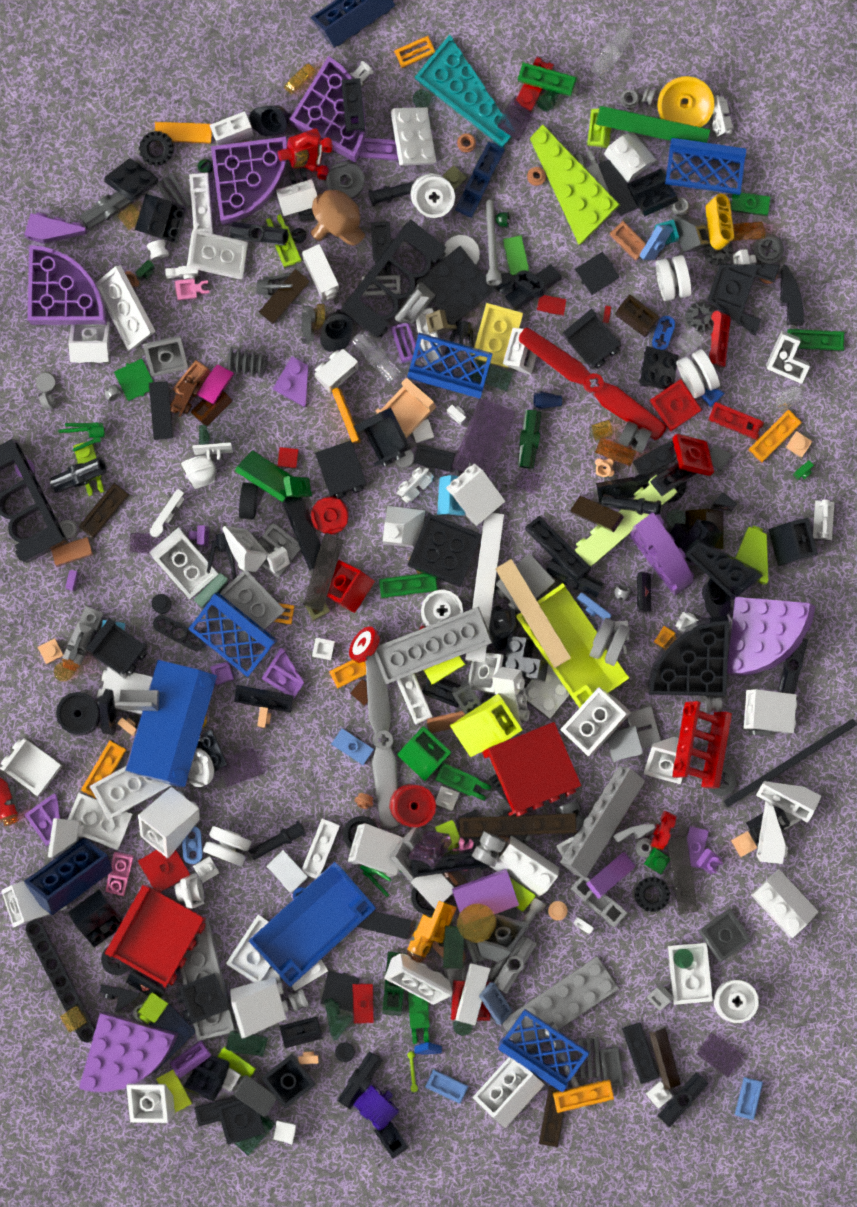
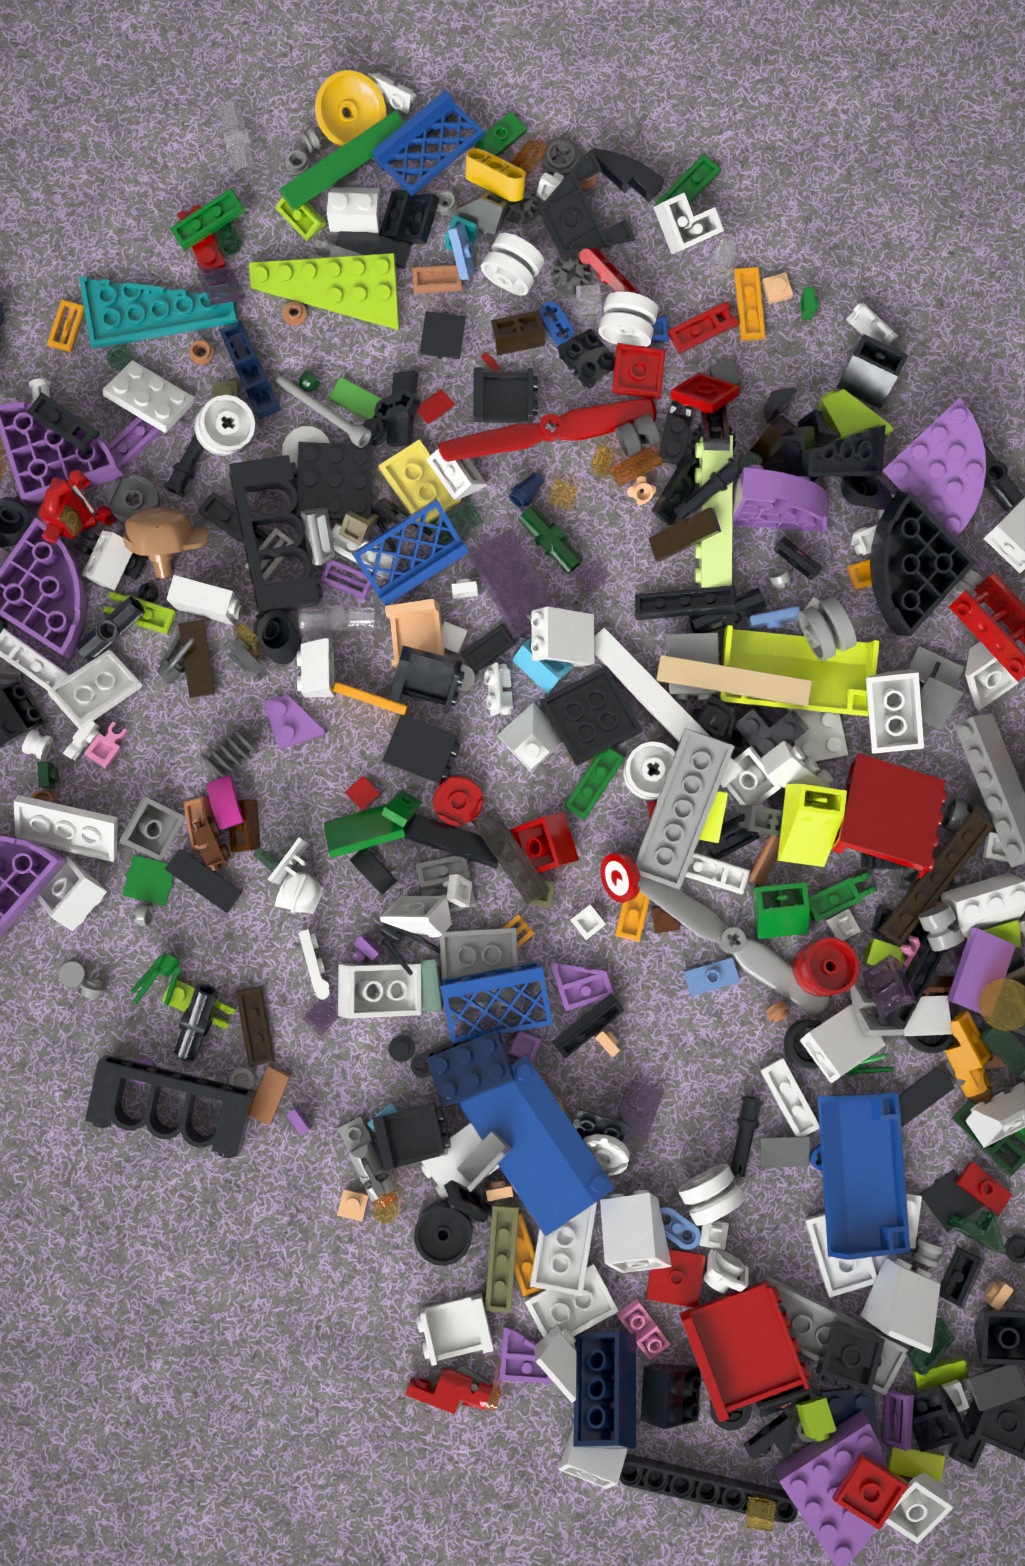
camera: 50 degrees left, 0 degrees up
(92, 758) = (501, 1258): none -> olive plate
(137, 1064) = (870, 1491): none -> red plate
(182, 650) = (470, 1069): none -> dark blue plate
(562, 424) = (562, 495): none -> clear yellow tile
(728, 539) = (816, 419): none -> black panel

